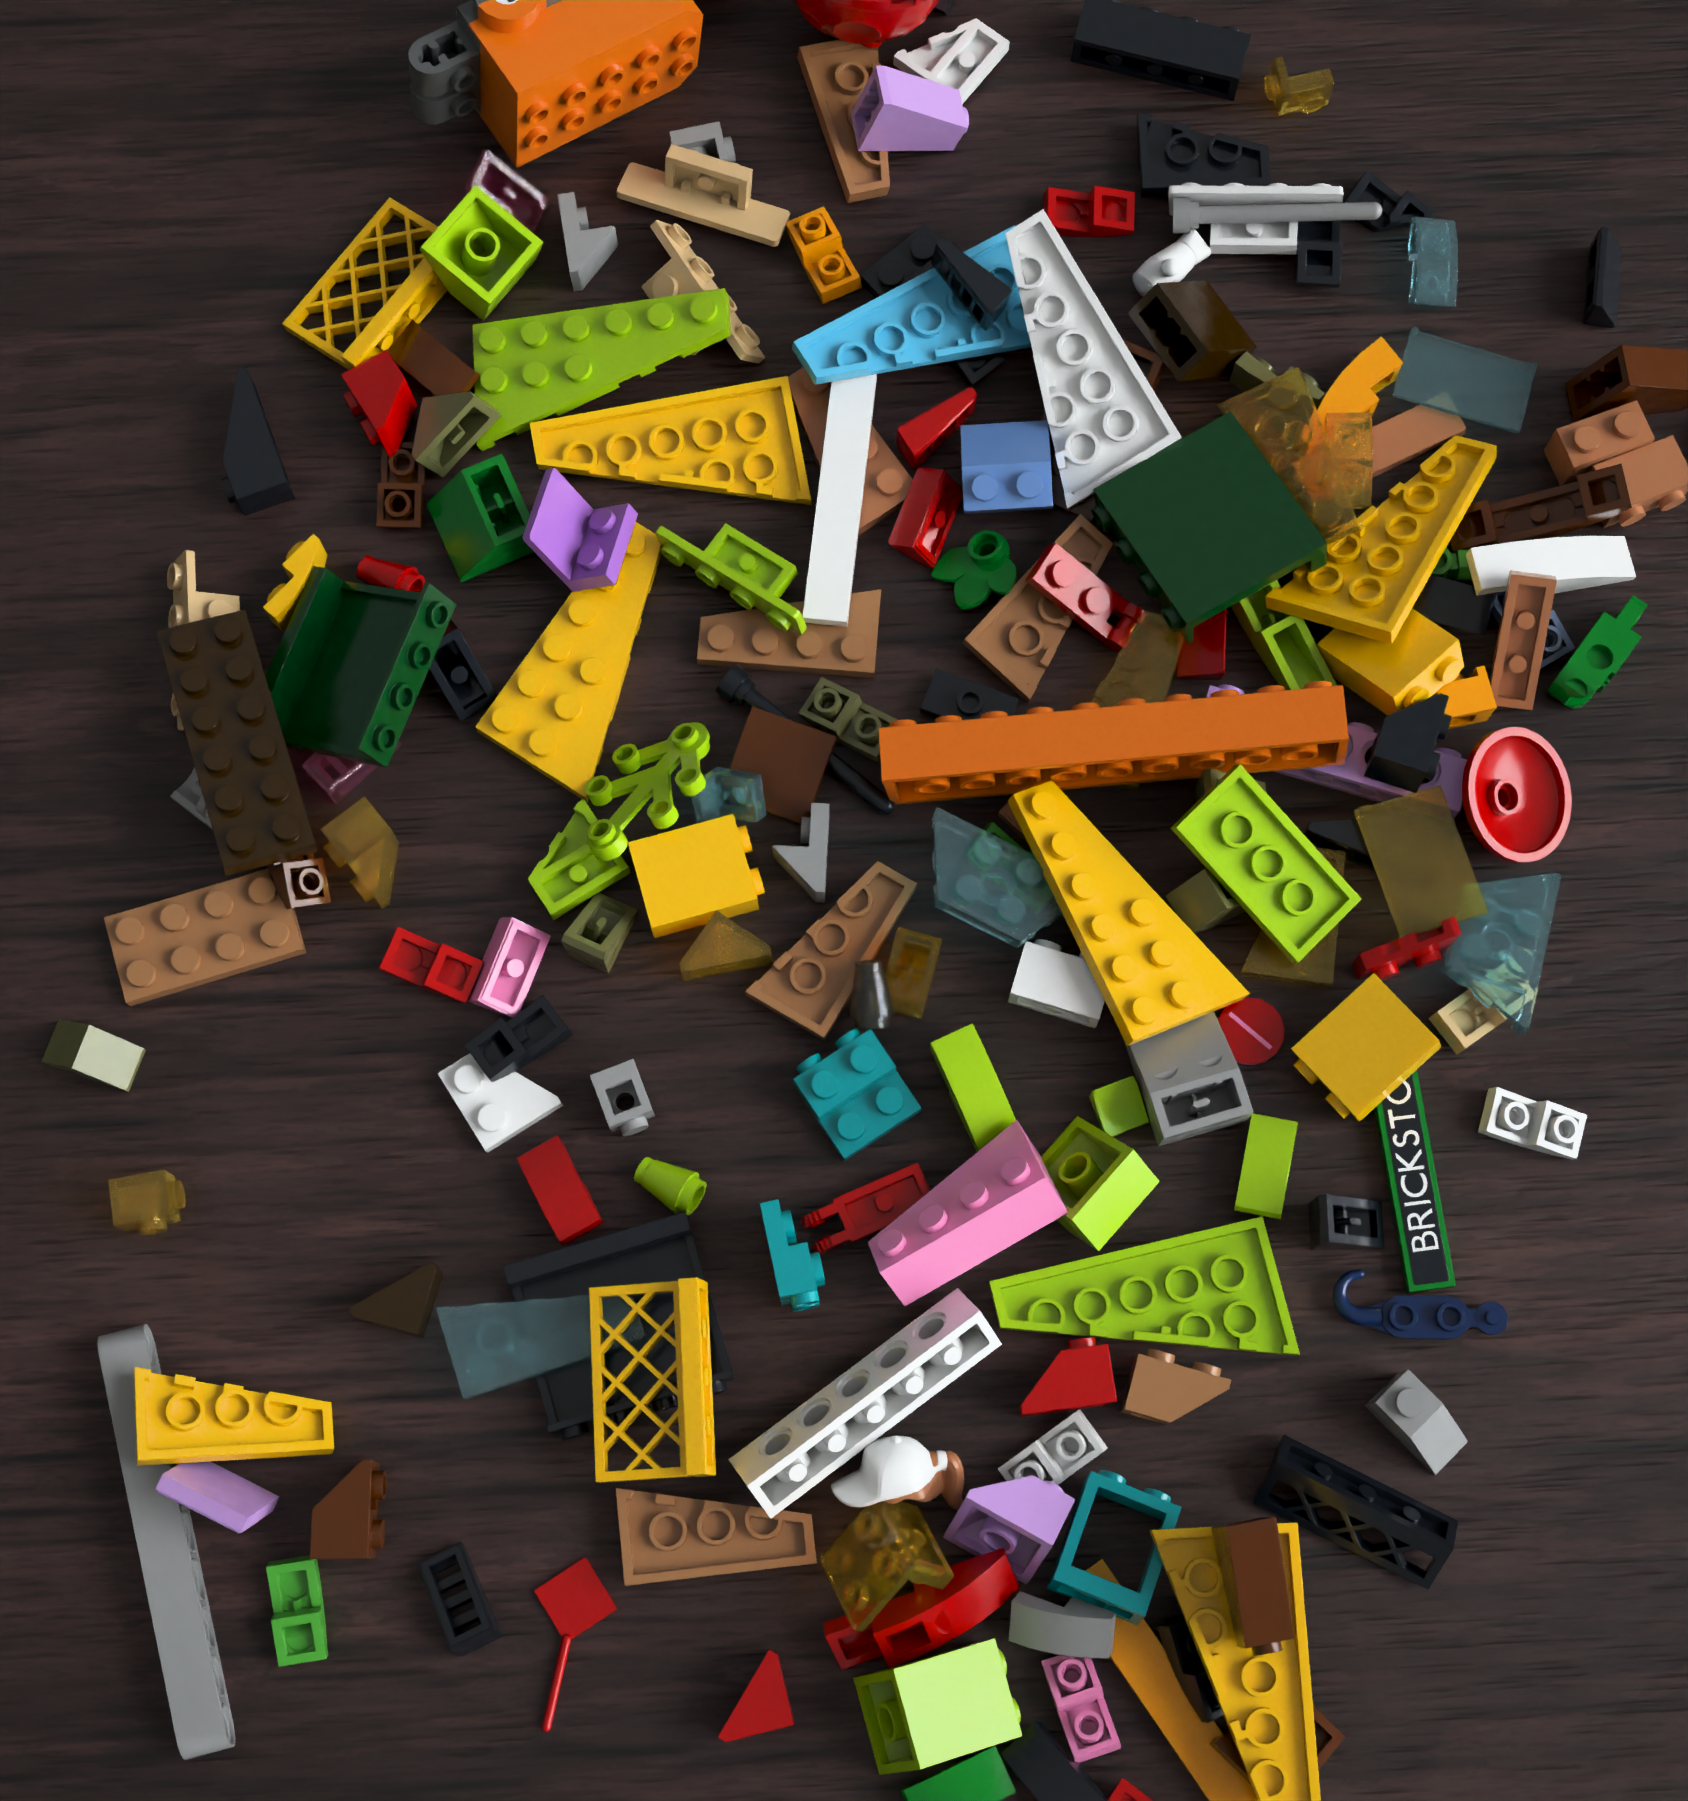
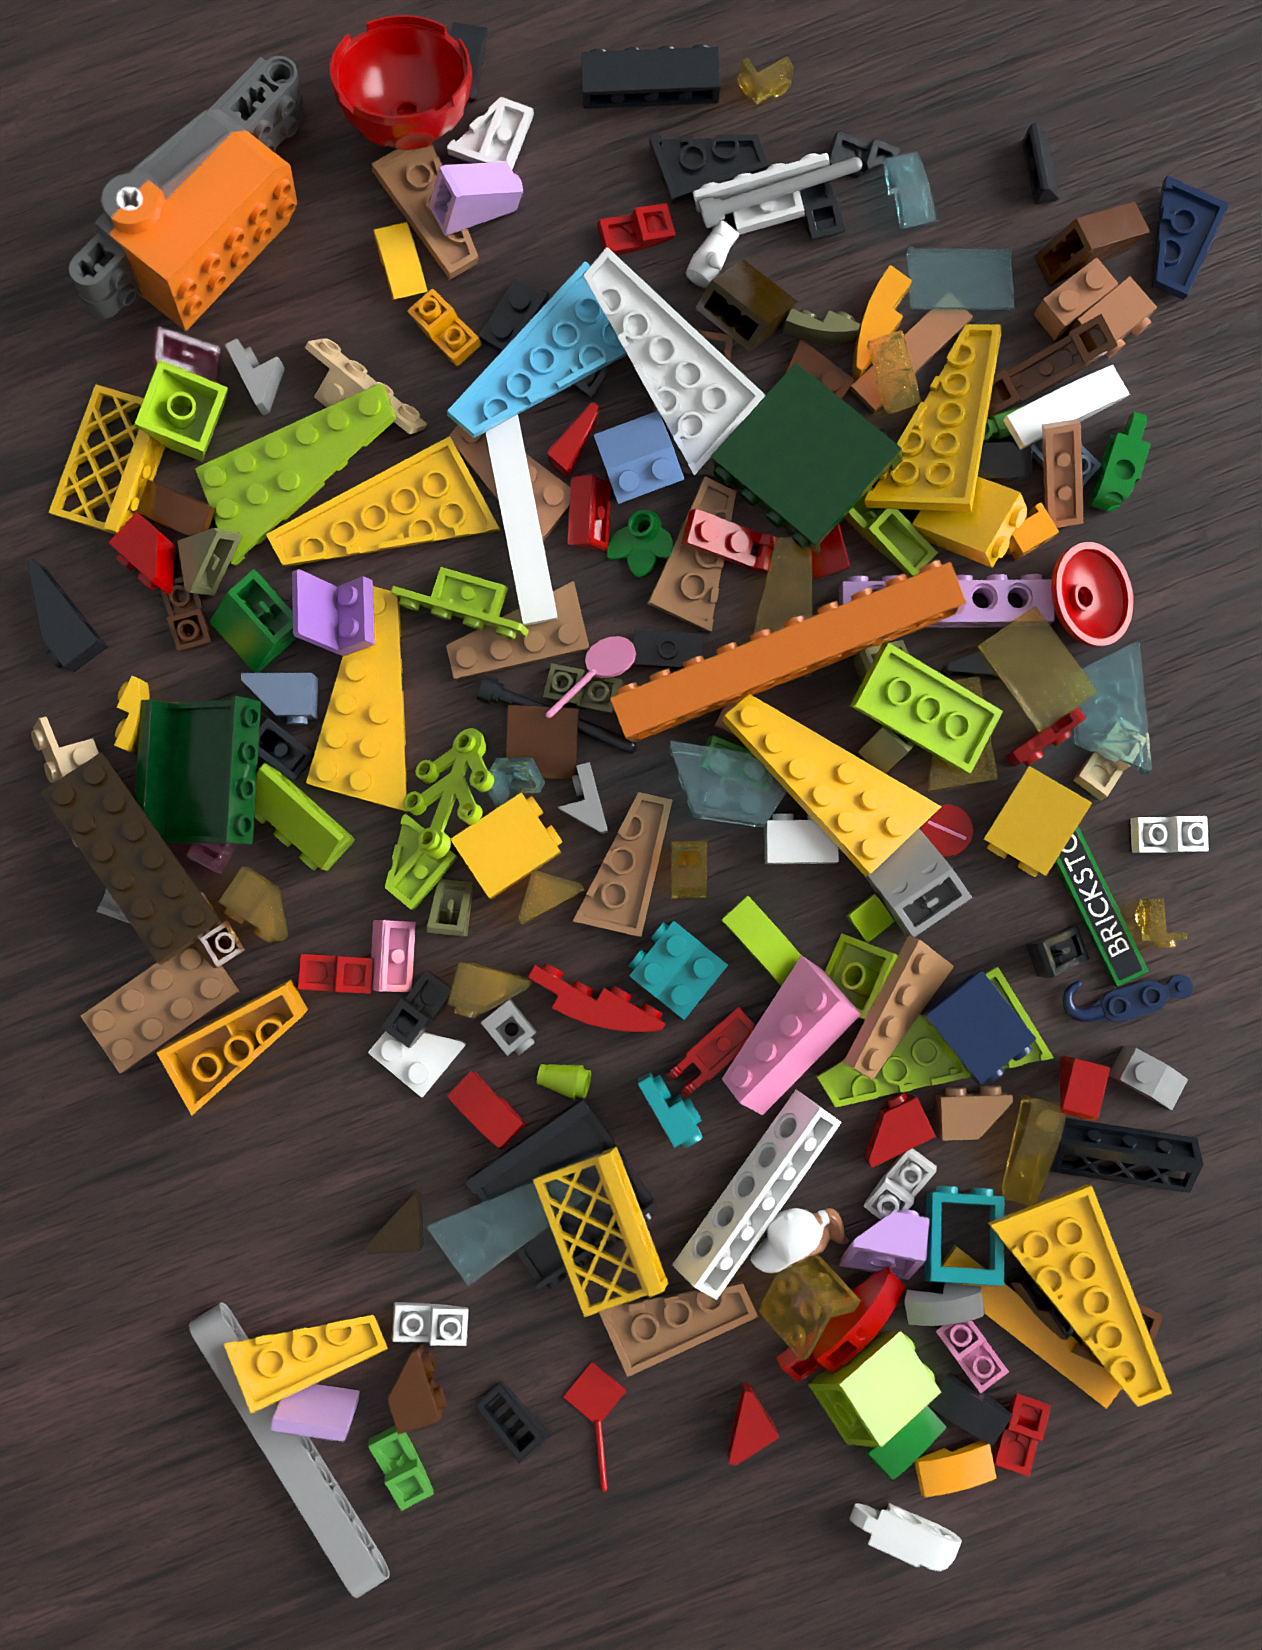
camera: 20 degrees left, 10 degrees up
(93, 1054) = (110, 1119): slope -> none
(146, 1201) = (188, 1216): clear yellow brick -> none
(264, 1007) = (222, 1048): none -> light orange wedge
(389, 574) = (203, 688): red cone -> none
(397, 1438) = (429, 1323): none -> white slope
(451, 764) = (299, 820): none -> lime slope
(489, 614) = (286, 694): none -> sand blue slope
(607, 1034) = (483, 988): none -> clear yellow slope
(705, 193) = (338, 306): tan bracket -> none
(706, 140) = (320, 268): light grey bracket -> none
(754, 1115) = (609, 1011): none -> red slope
(796, 164) = (400, 260): none -> yellow slope
(871, 997) = (666, 897): clear smoke cone -> none
(885, 692) = (605, 660): none -> bright pink piece
(972, 284) = (570, 322): black slope -> none
(1123, 1215) = (900, 1001): none -> medium nougat wing
(1215, 1279) = (980, 1027): none -> dark blue panel
(1238, 1462) = (1032, 1149): none -> clear yellow slope
(1255, 1583) = (1076, 1242): reddish brown slope -> none
(1266, 1166) = (989, 928): lime slope -> none
(1293, 441) = (847, 369): clear yellow wing -> none
(1324, 1397) = (1082, 1087): none -> red slope
(1406, 744) = (1004, 586): black slope -> none
(1477, 1219) = (1152, 920): none -> clear yellow bracket

